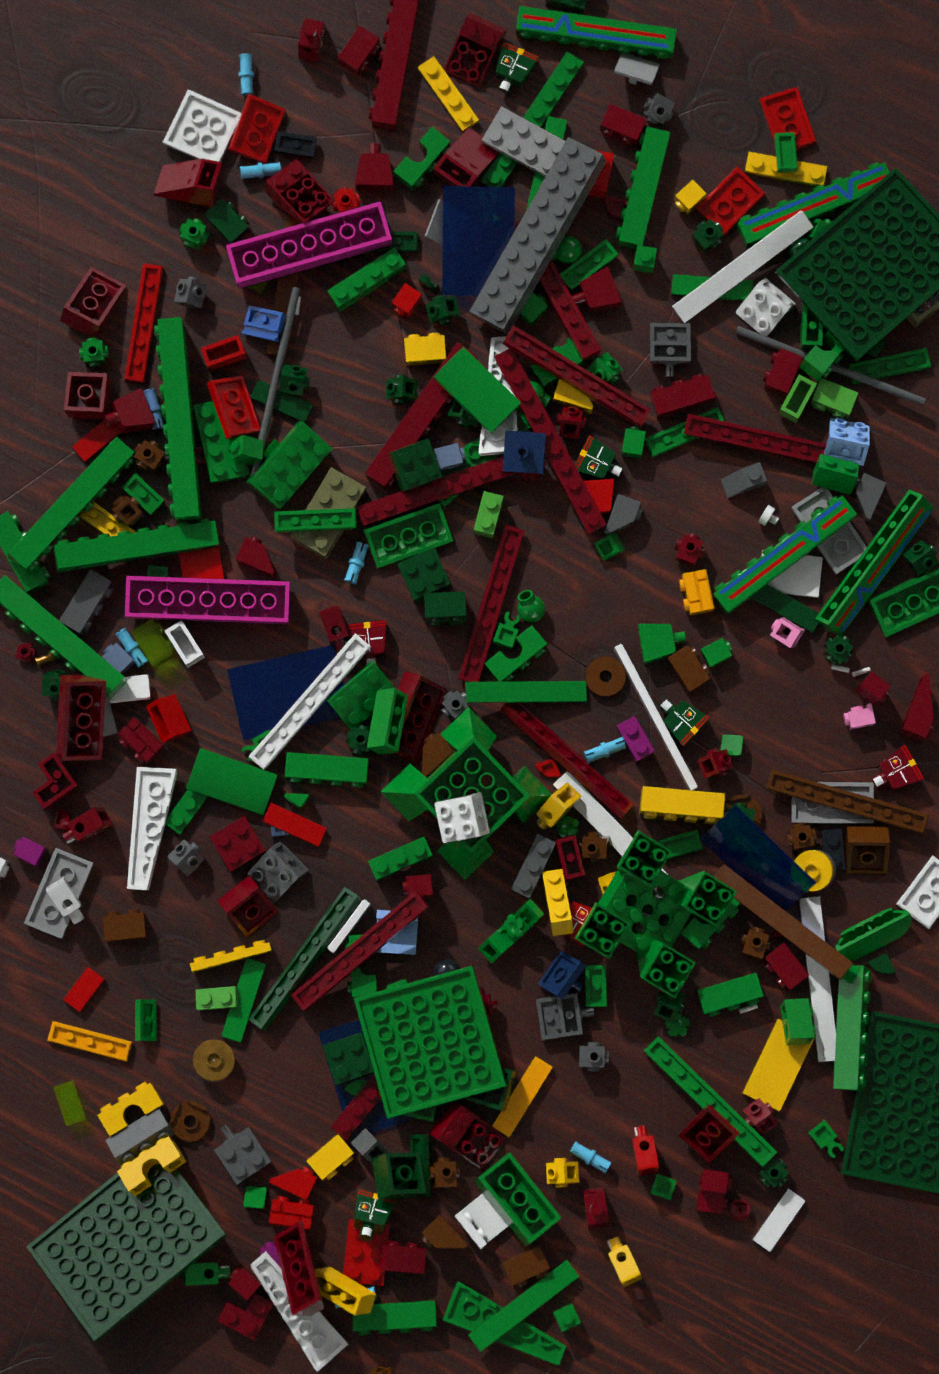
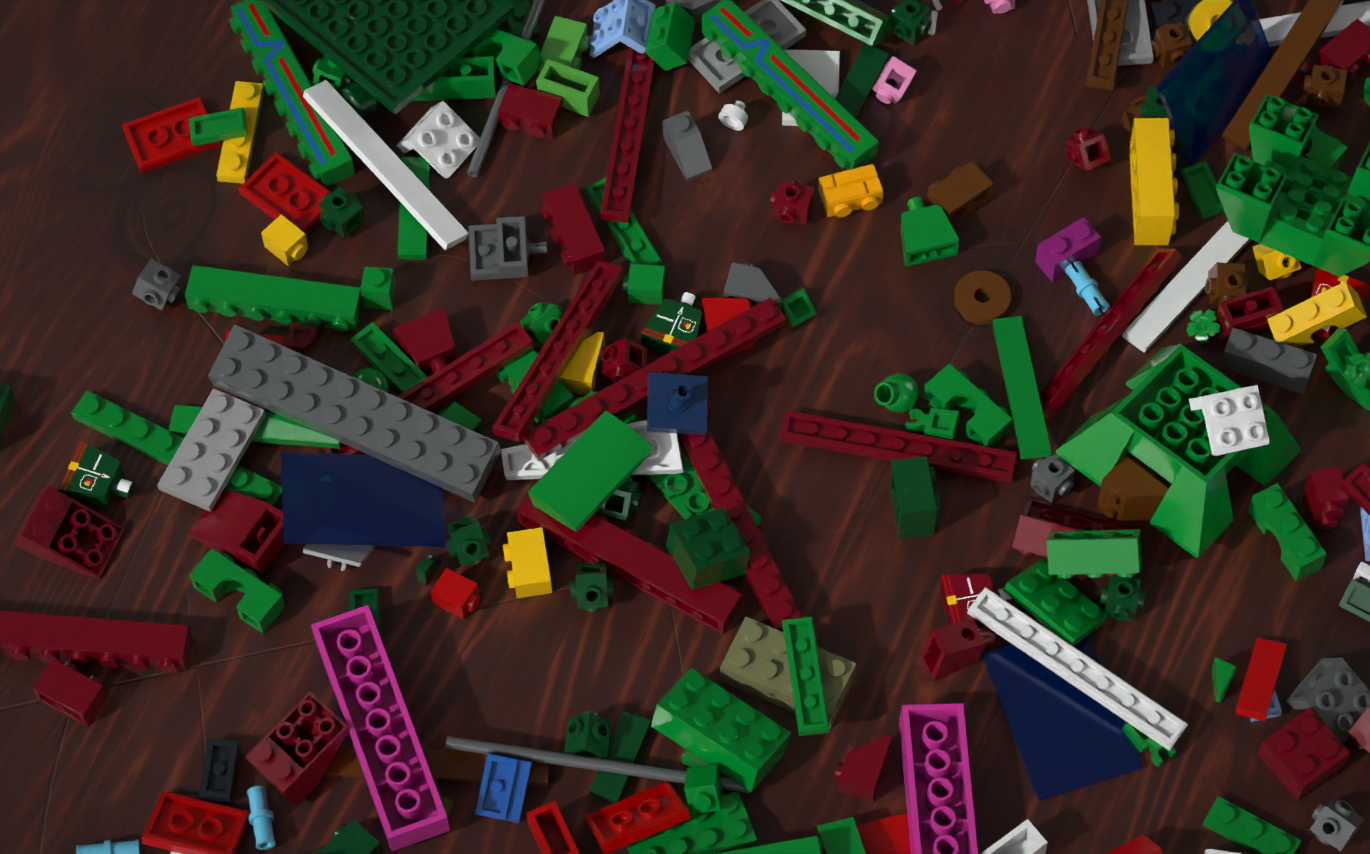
camera: 95 degrees left, 20 degrees down
(231, 781) = (1211, 771): green slope -> none
(312, 38) = (49, 758): dark red torso -> none
(326, 768) = (1170, 643): green brick -> none
(342, 195) = (307, 679): red brick -> none
(356, 563) = (857, 630): medium azure pin -> none
(366, 280) = (427, 649): green brick -> none
(374, 170) = (256, 654): dark red torso -> none
(408, 535) = (809, 564): green slope -> none
(424, 574) = (866, 535): dark green brick -> none
(448, 94) = (136, 567): yellow plate -> none
(449, 457) = (688, 502): sand blue brick -> none
(488, 514) = (768, 458): bright green brick -> none
(548, 768) = (1122, 358): red tile -> none
(557, 806) = (1179, 325): yellow torso -> none
(595, 31) = (42, 378): green brick -> none
(622, 125) = (181, 331): dark red brick -> none
(636, 69) = (98, 317): light grey piece -> none
(655, 718) = (1034, 228): white tile -> none
(683, 721) = (1034, 195): dark green torso -> none
(716, 652) = (932, 161): green brick -> none
(733, 744) = (1054, 135): green slope -> none

